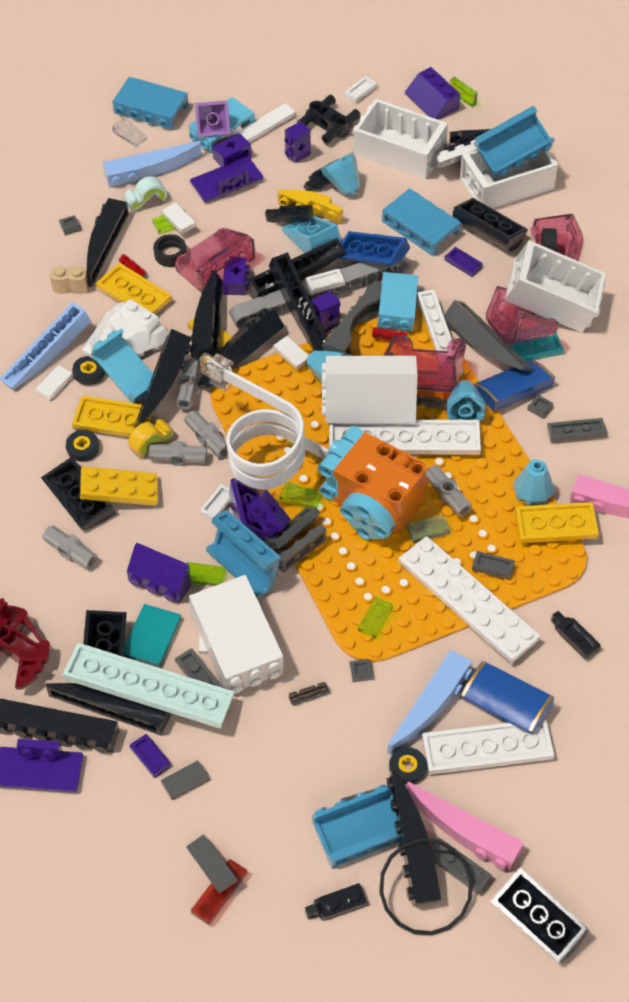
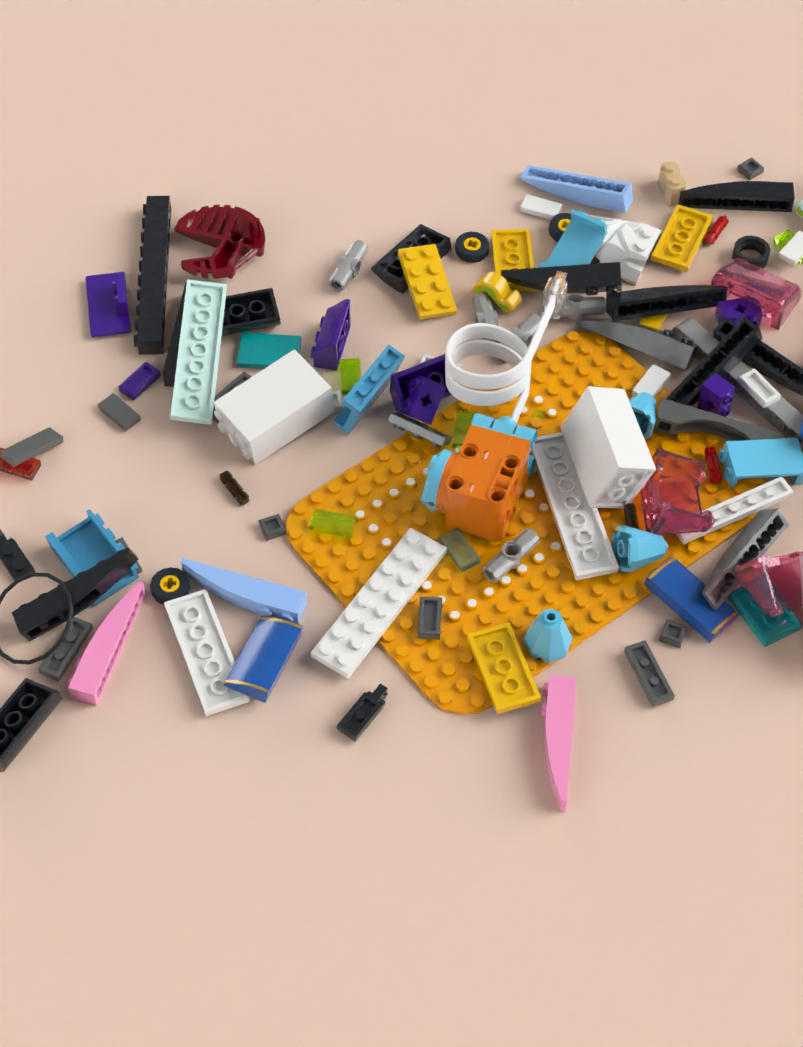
camera: 75 degrees right, 0 degrees up
(302, 548) = (396, 441): dark grey plate -> none

